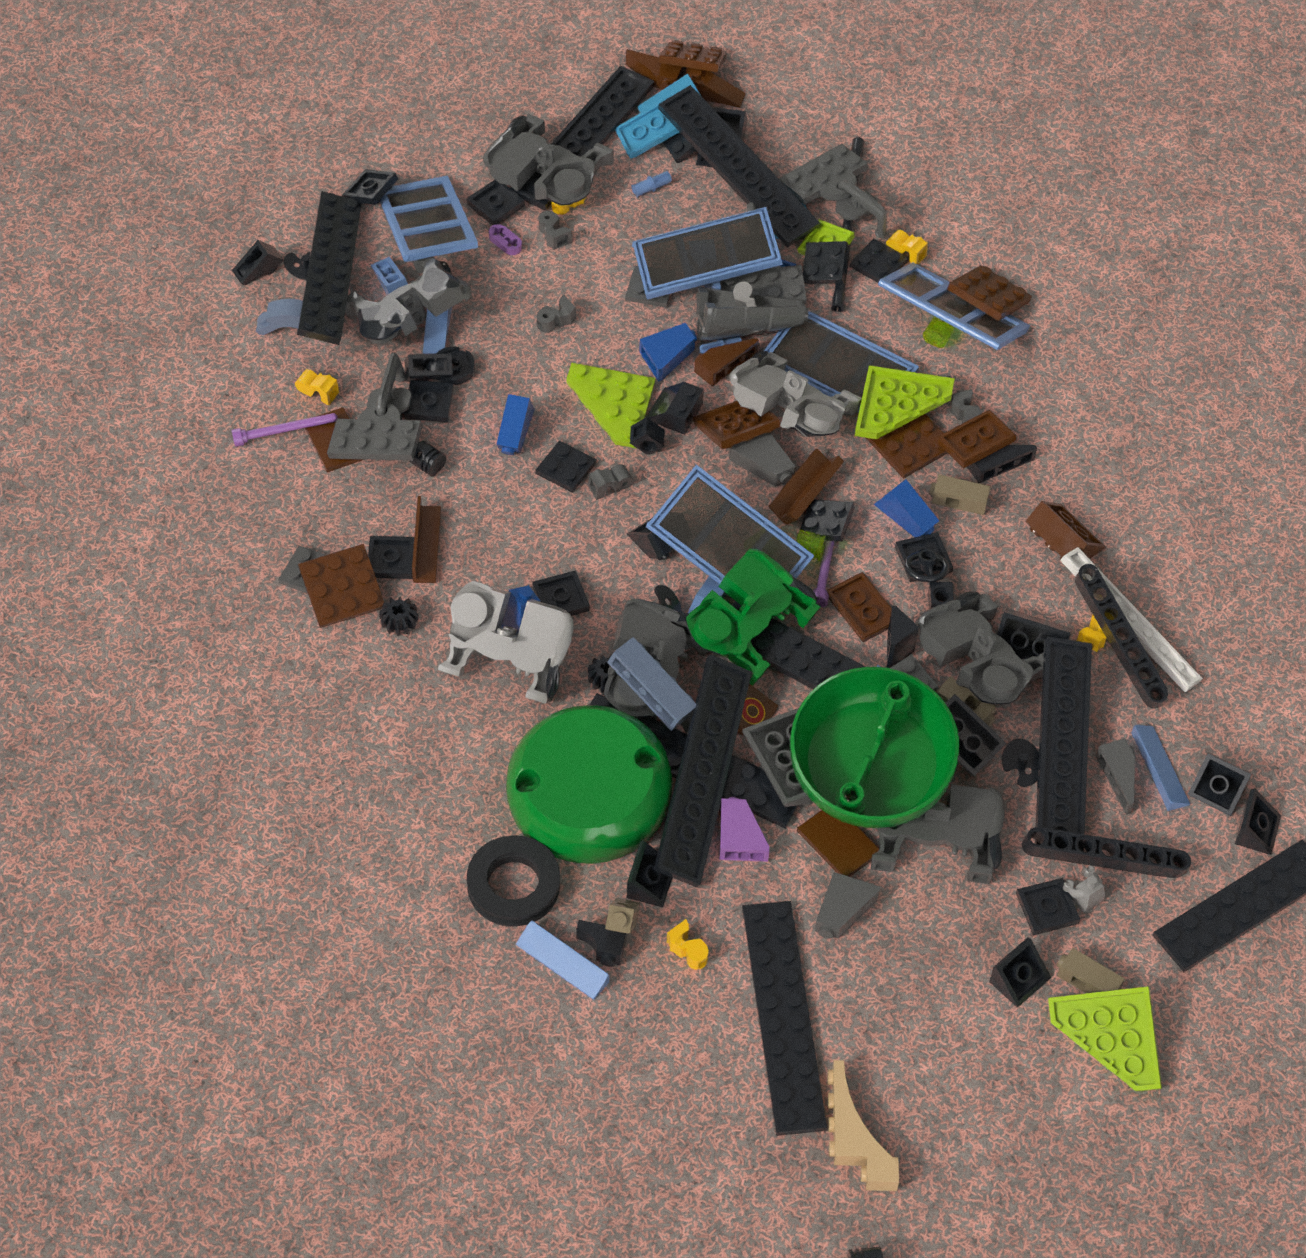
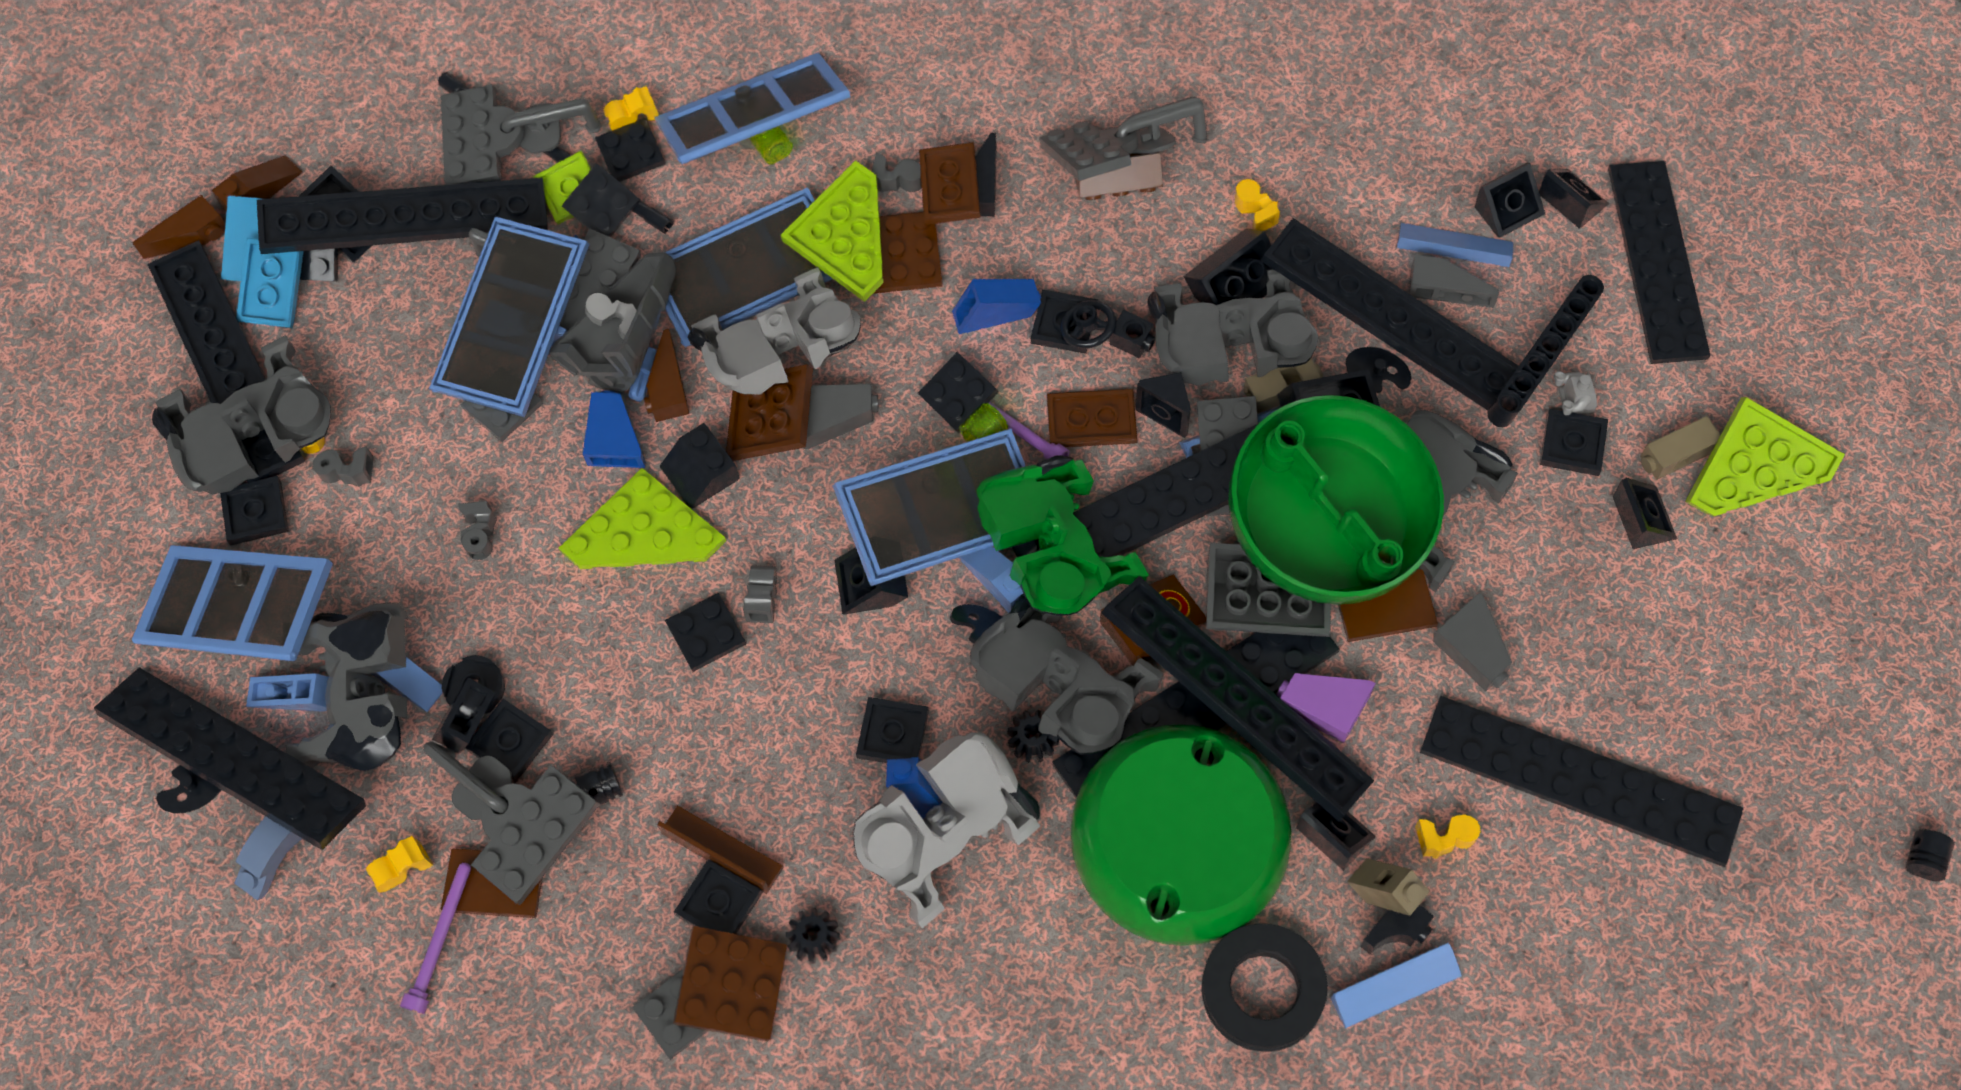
camera: 55 degrees left, 10 degrees up
(258, 261) = (150, 845): black arch -> none
(371, 186) = (126, 644): black plate -> none
(507, 238) = (319, 529): medium lavender beam -> none
(514, 424) = (616, 659): blue slope -> none
(647, 436) = (726, 519): black brick -> none
(651, 183) = (350, 324): medium blue axle -> none
(652, 683) = (1104, 691): sand blue brick -> none
(693, 56) = (197, 178): reddish brown plate -> none
(804, 486) = (900, 389): reddish brown panel -> none
(853, 1142) = (1769, 790): tan arch -> none
(960, 494) = (1005, 240): dark tan brick -> none
(989, 292) = (754, 64): reddish brown plate -> none
(1063, 504) = (1092, 152): none -> dark grey plate
(1121, 625) = (1280, 192): black beam -> none
(1149, 637) = (1266, 167): white tile -> none

